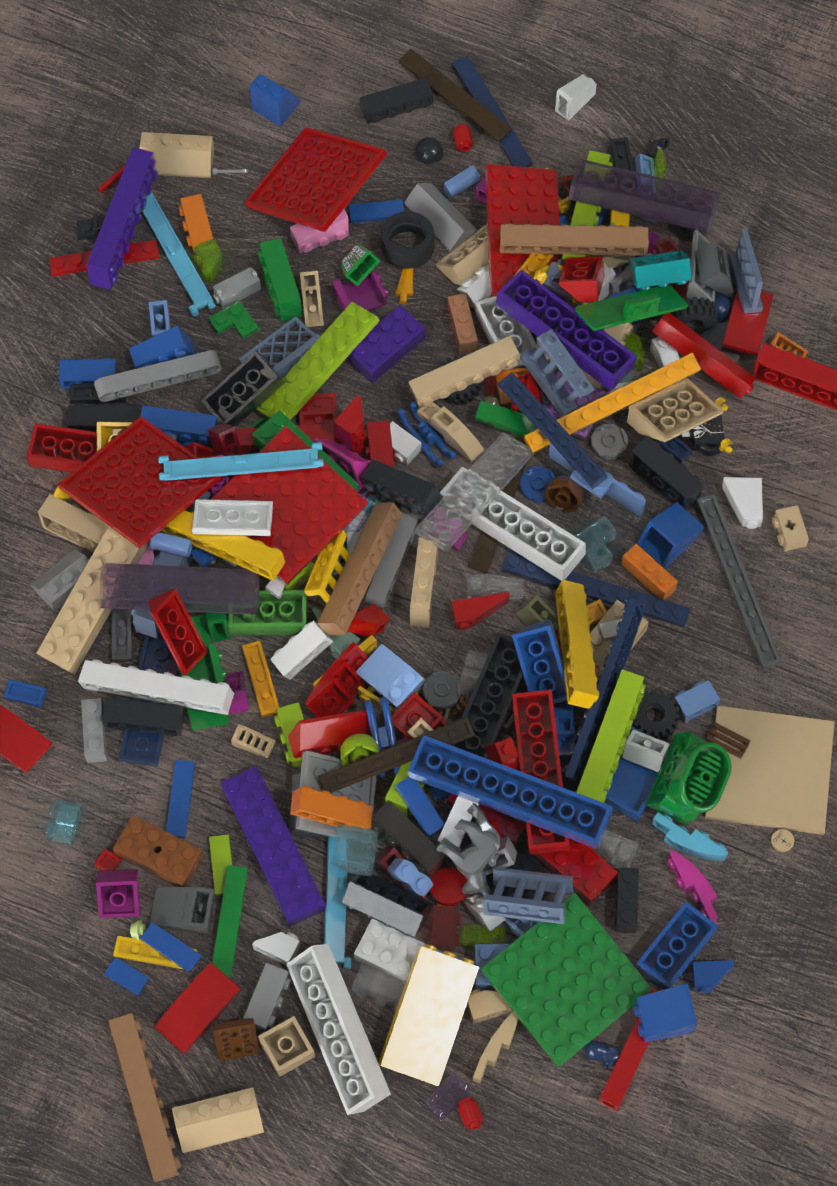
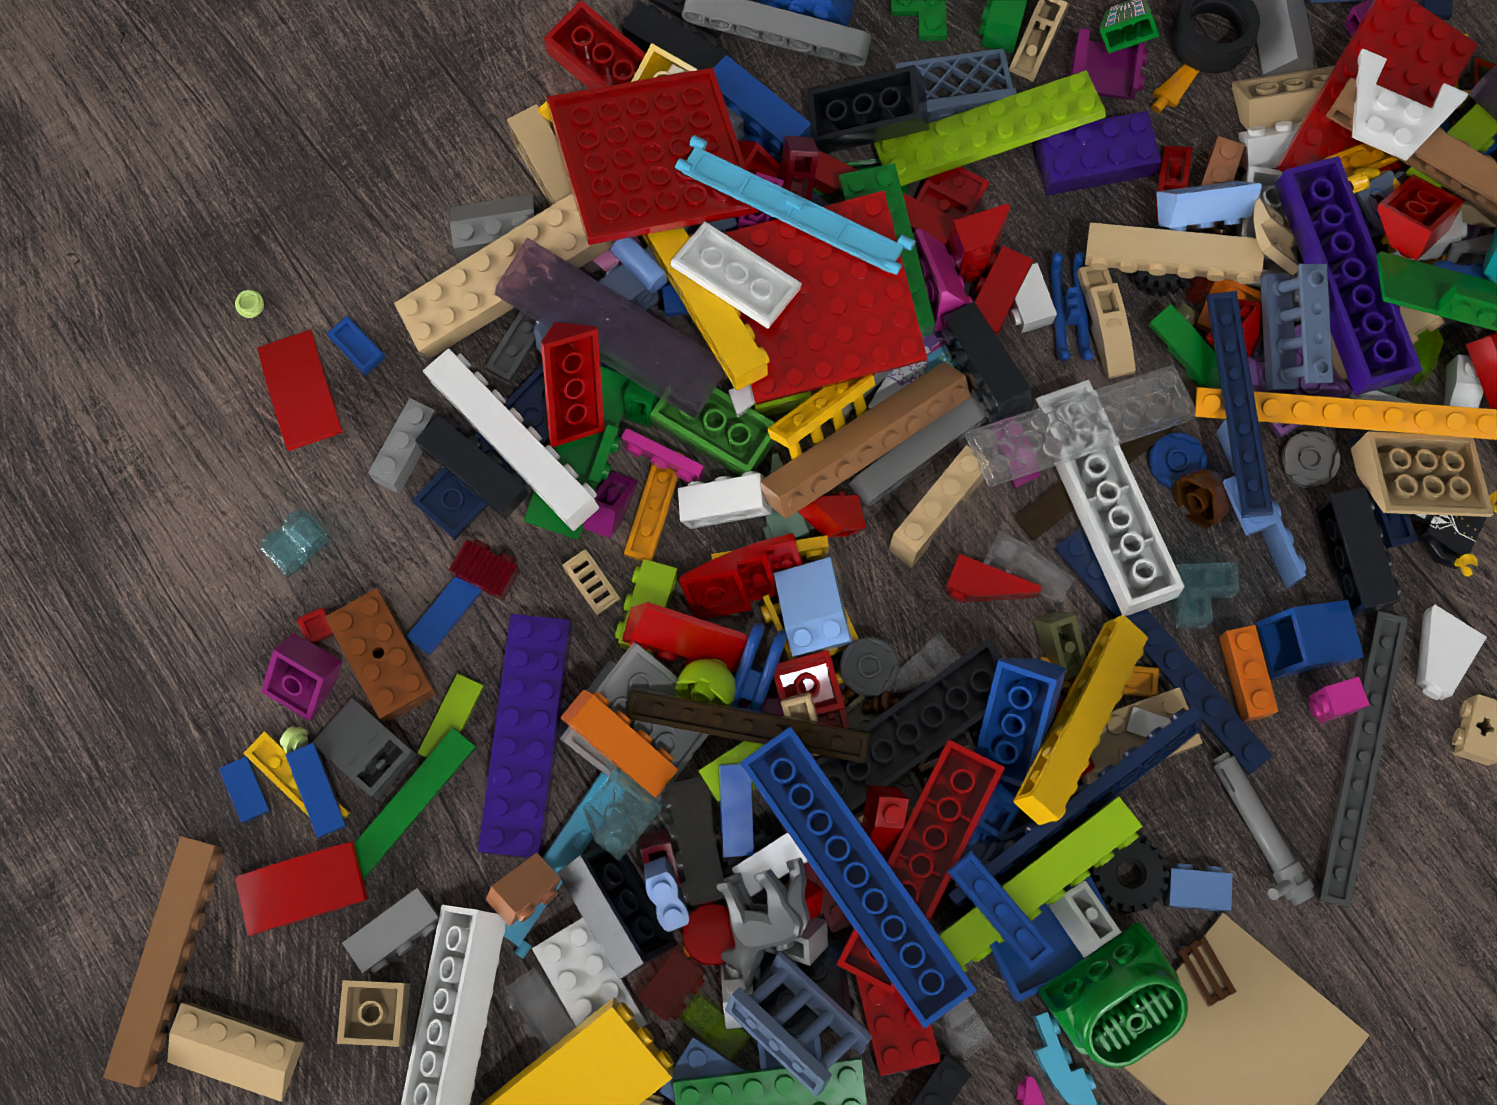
camera: 35 degrees right, 10 degrees up
(188, 768) = (485, 569): none -> dark red brick
(235, 1035) = (318, 961): reddish brown plate -> none
(249, 647) = (661, 456): none -> dark pink plate
(279, 947) = (450, 875): white slope -> none
(329, 922) = (523, 890): none -> nougat brick
(439, 337) = (1174, 169): none -> red slope
(466, 335) = (1207, 204): none -> light blue slope
(514, 331) = (1275, 236): none -> tan slope
(536, 235) = (1392, 120): none -> white wing
(597, 764) = (1000, 910): none -> blue tile
(705, 557) = (1338, 700): none -> dark pink brick
(737, 663) = (1286, 870): none -> light grey cylinder

